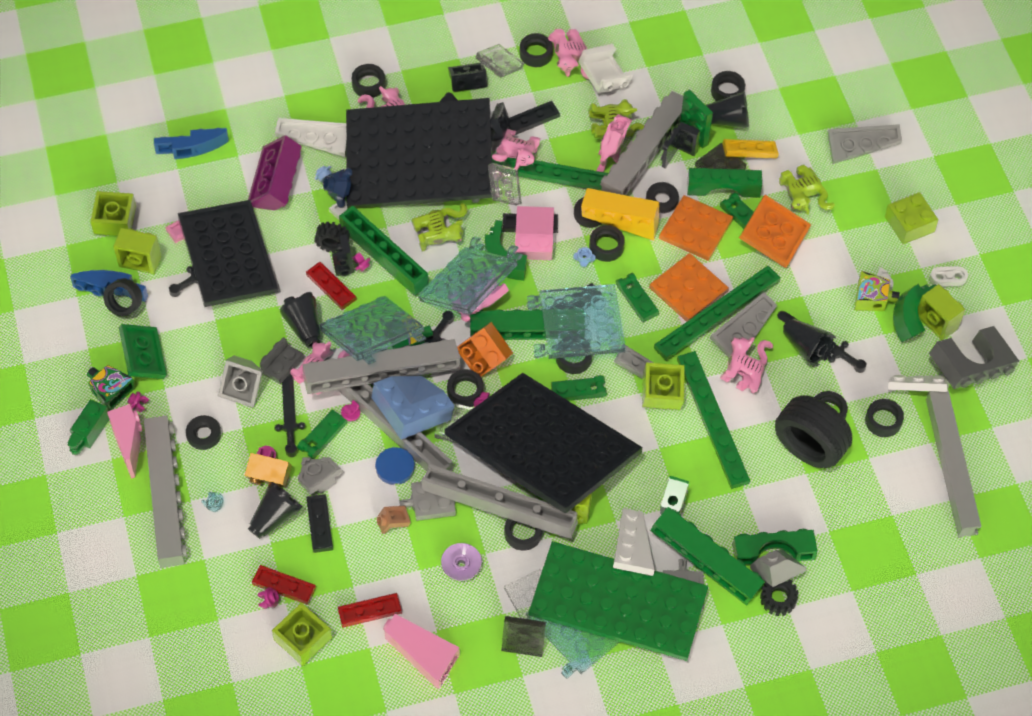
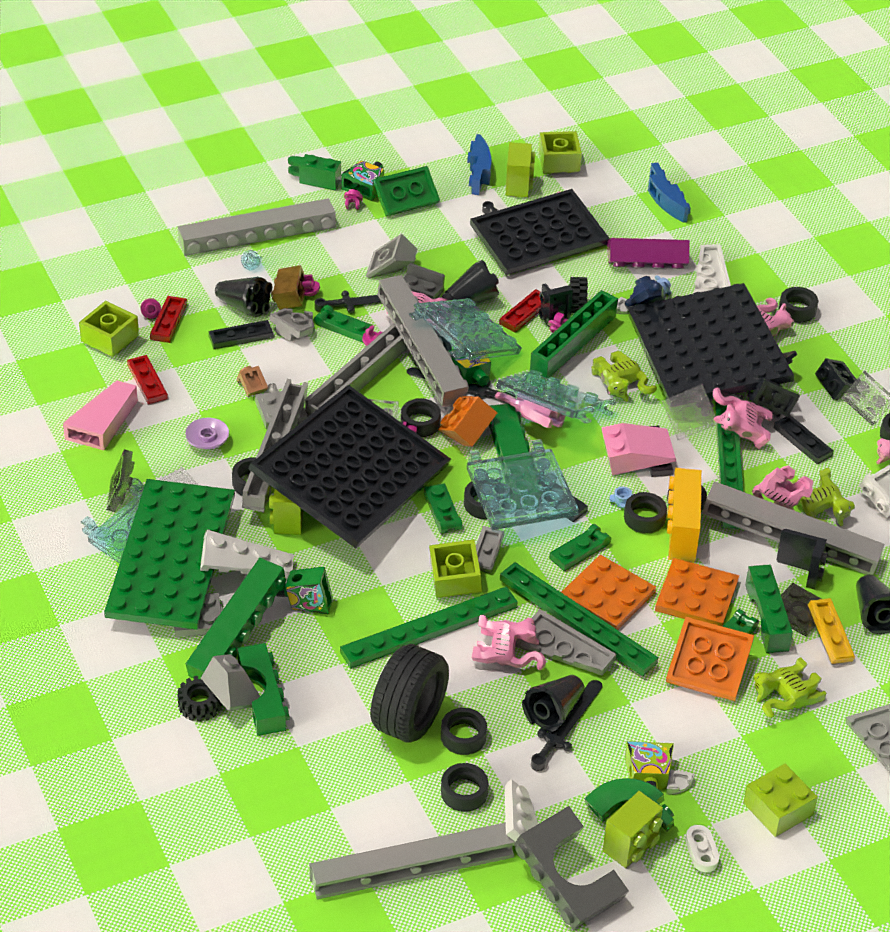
camera: 80 degrees right, 15 degrees down
(127, 430) = (302, 187): bright pink slope -> none
(133, 290) = (463, 168): black tyre -> none
(203, 443) = (328, 238): black tyre -> none
(394, 465) = (314, 374): blue tile -> none
(411, 404) = (381, 365): medium blue slope -> none
(493, 246) = (591, 433): green arch -> none
(670, 190) = (734, 548): black tyre -> none
(697, 114) = (842, 560): green plate -> none

